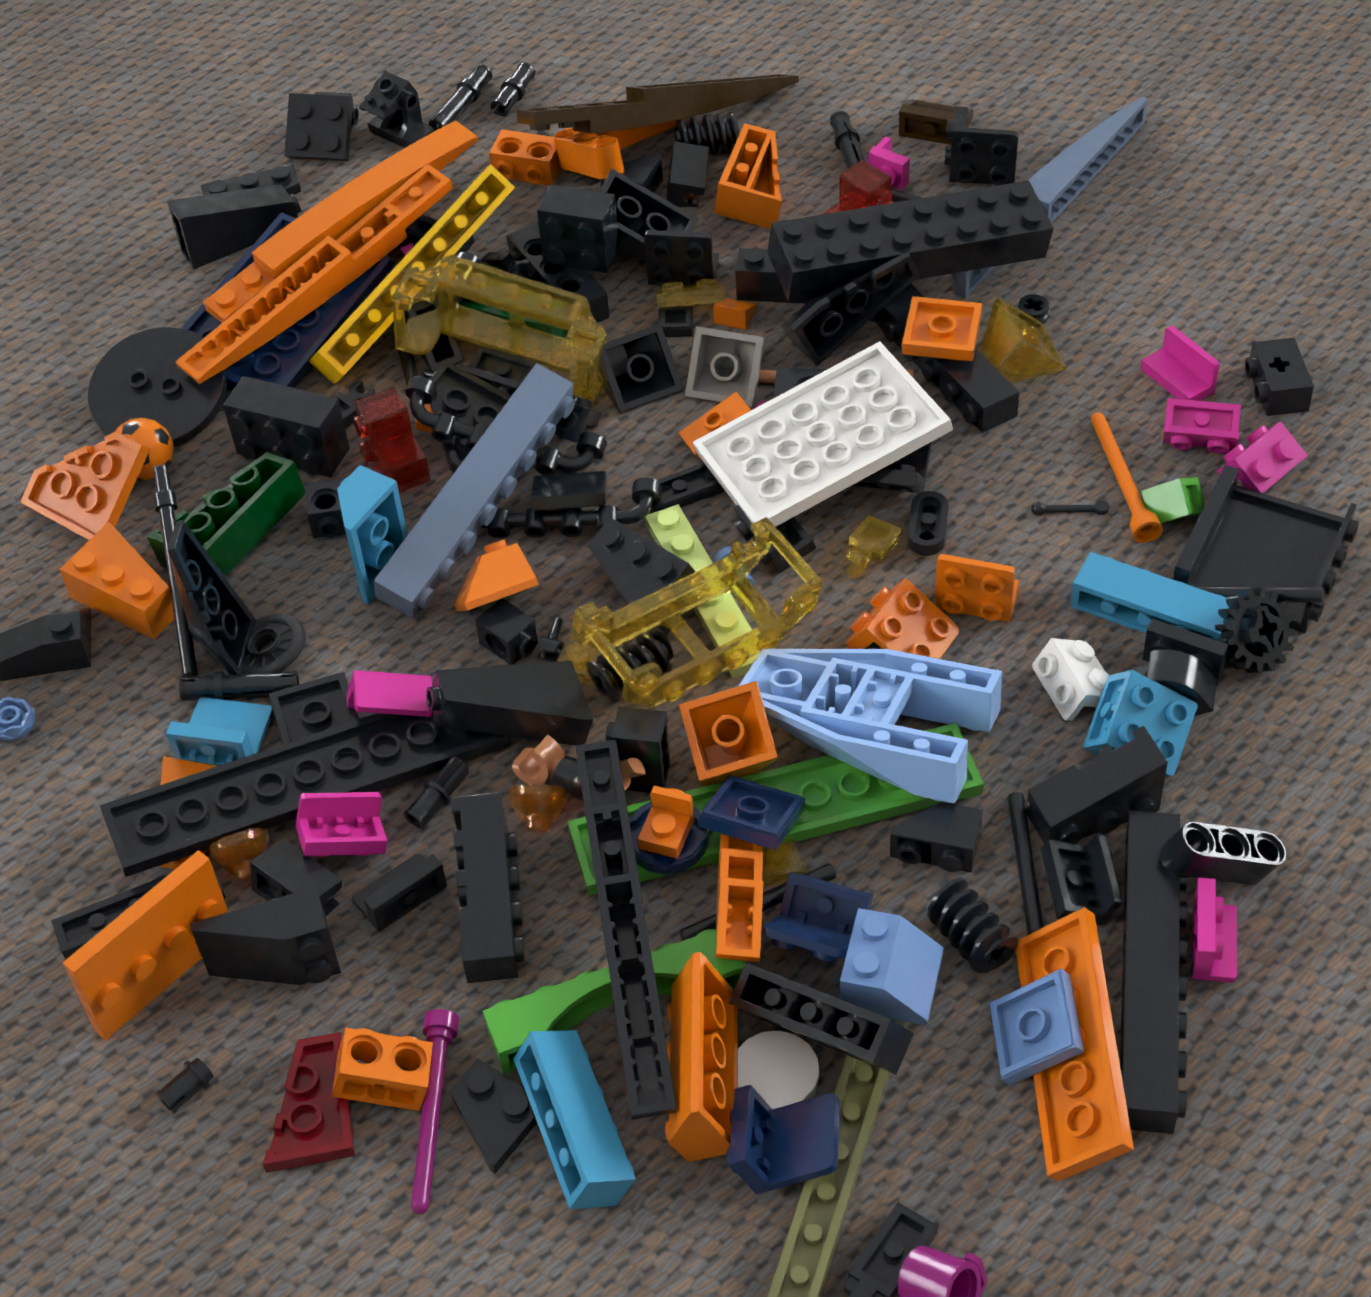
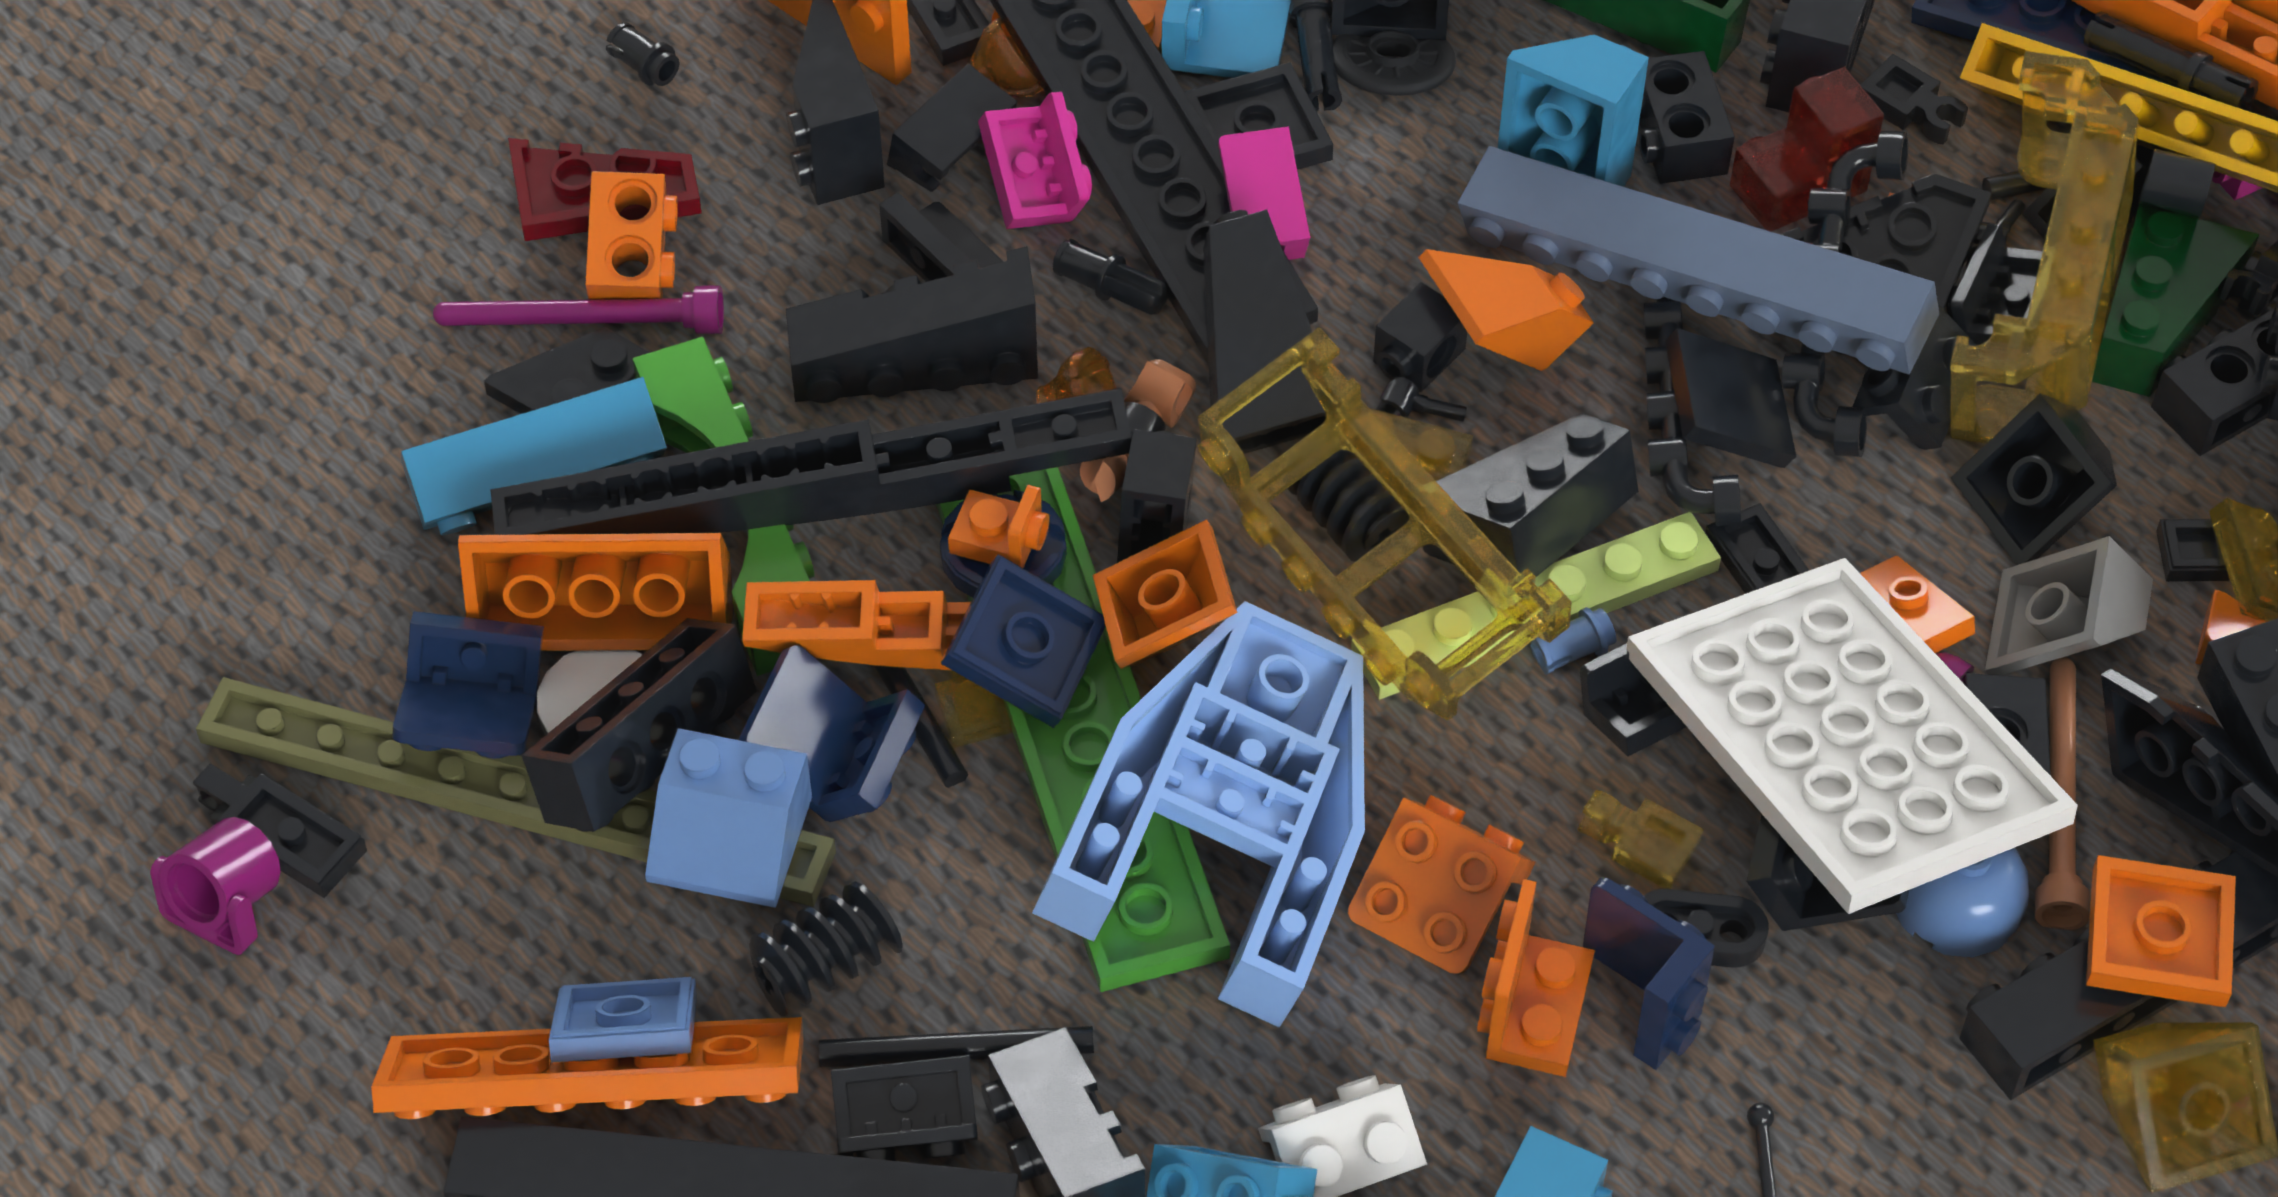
camera: 85 degrees right, 5 degrees up
(368, 273) = (2162, 59): none -> black pin
(939, 837) = (994, 930): black slope -> none
(977, 519) = (1659, 956): none -> dark blue bracket

